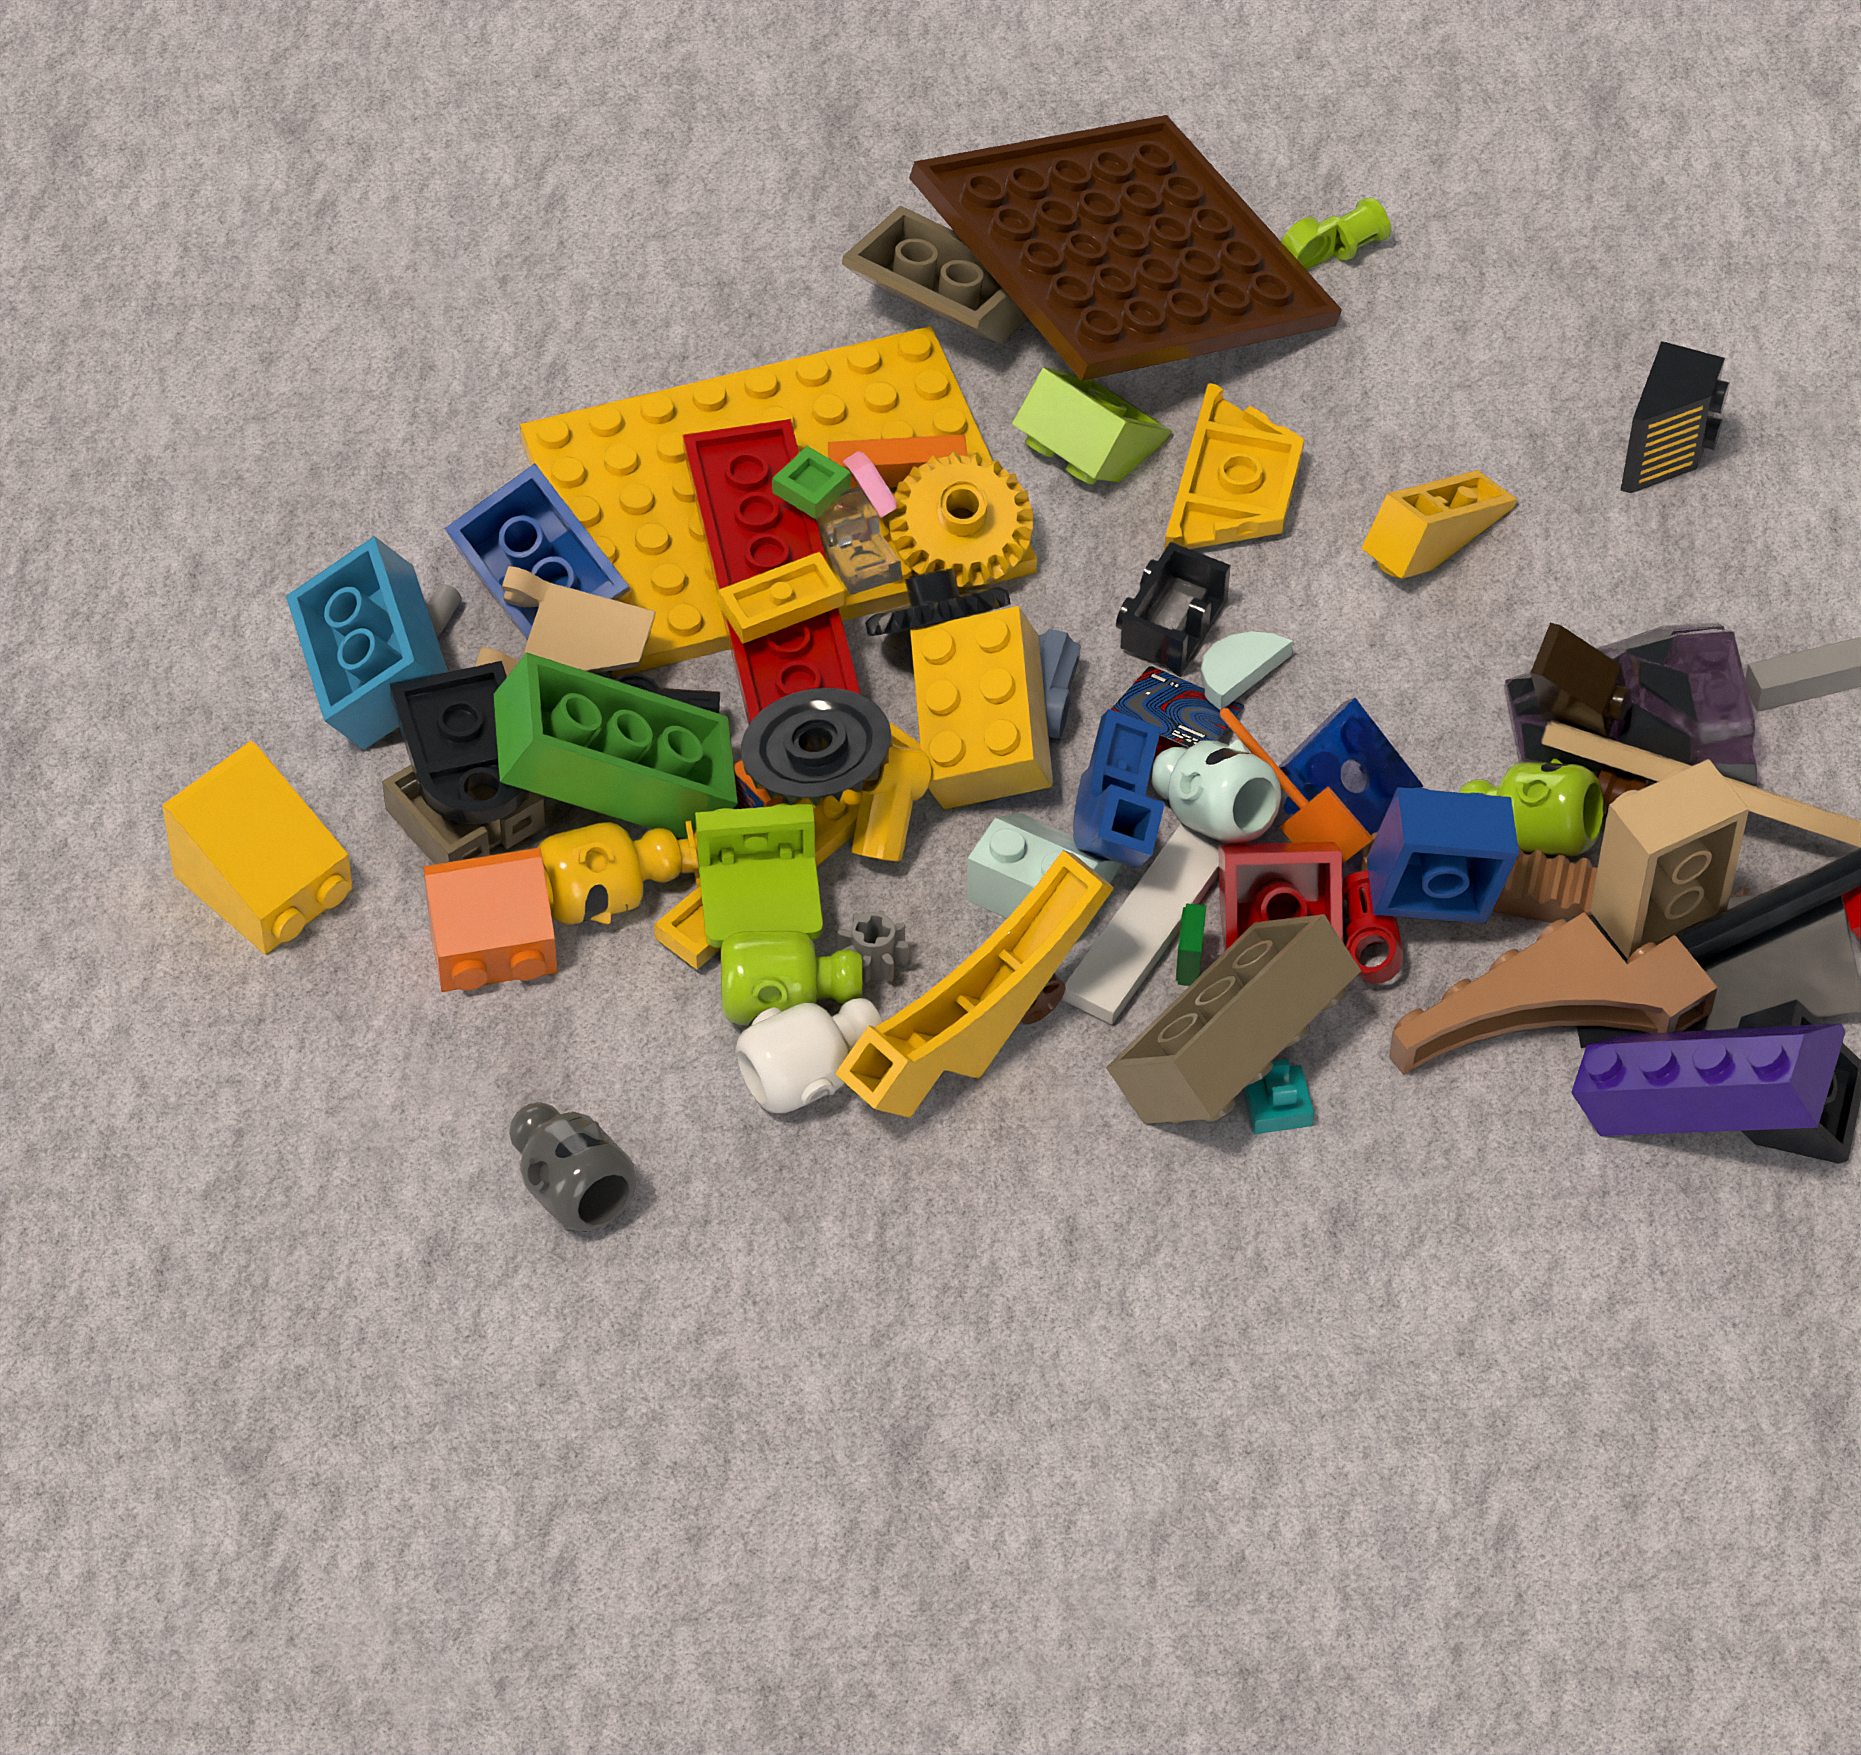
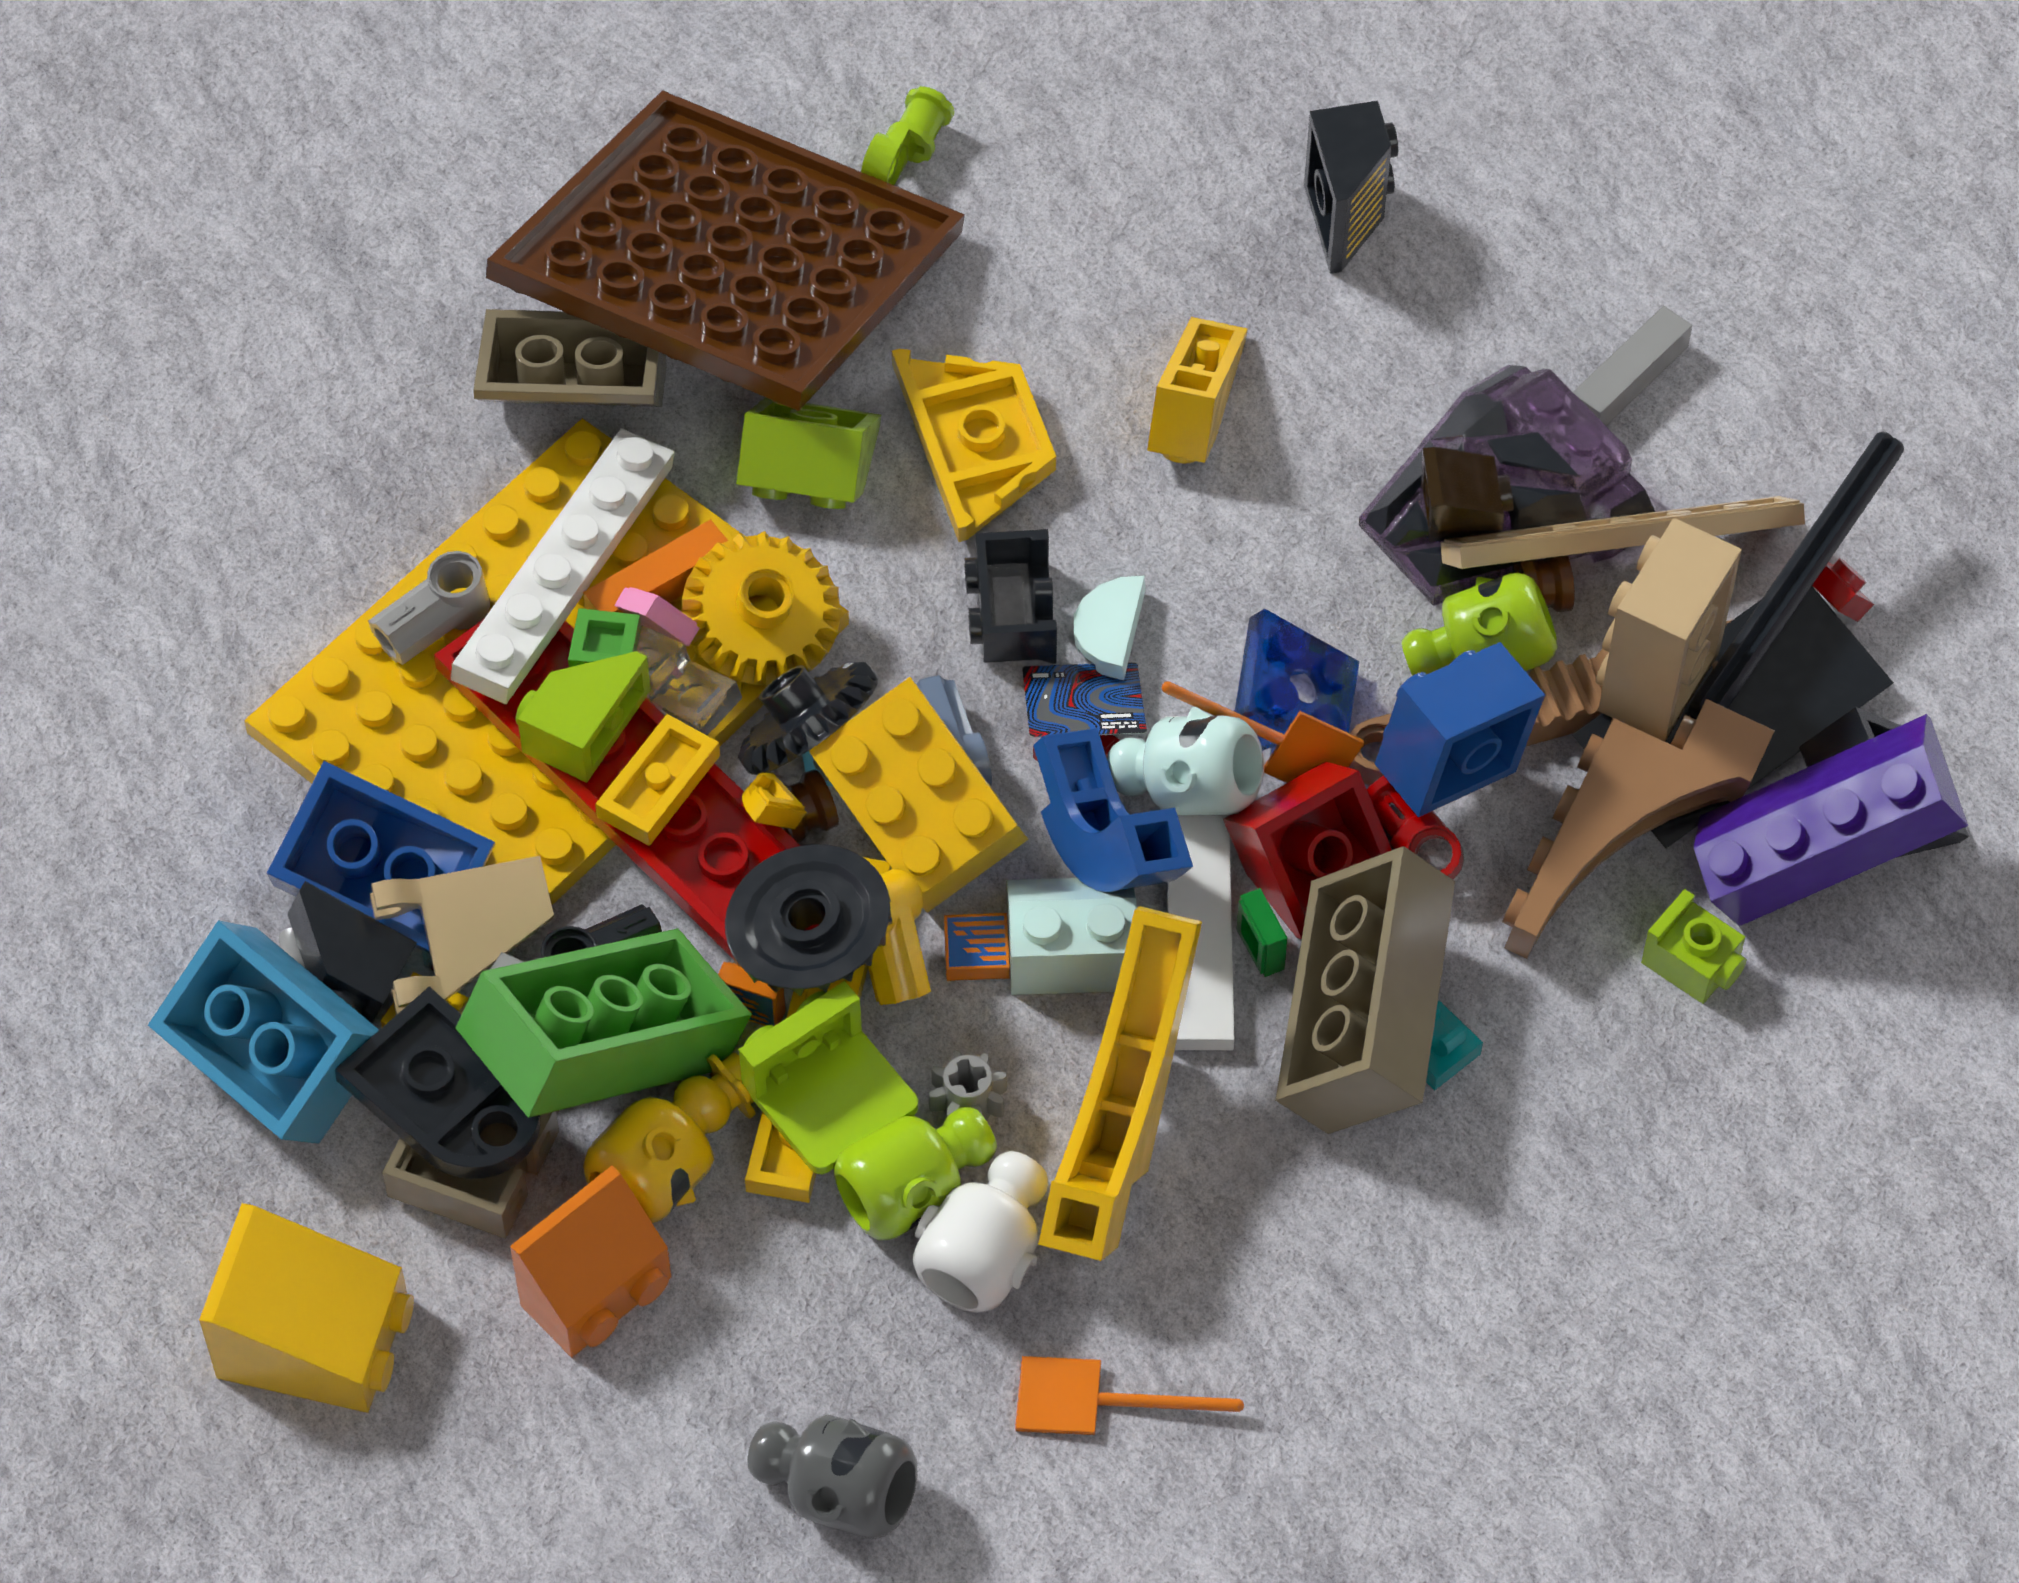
camera: 30 degrees left, 5 degrees up
(473, 616) = (348, 949): none -> black slope
(723, 401) = (431, 609): none -> light grey piece
(760, 522) = (582, 712): none -> lime slope
(795, 1203) = (1065, 1397): none -> orange piece
(825, 415) = (562, 566): none -> white plate
(861, 658) = (772, 803): none -> yellow tile
(893, 682) = (818, 803): none -> reddish brown wheel
(952, 846) = (976, 946): none -> tile
(1540, 1127) = (1694, 949): none -> lime brick

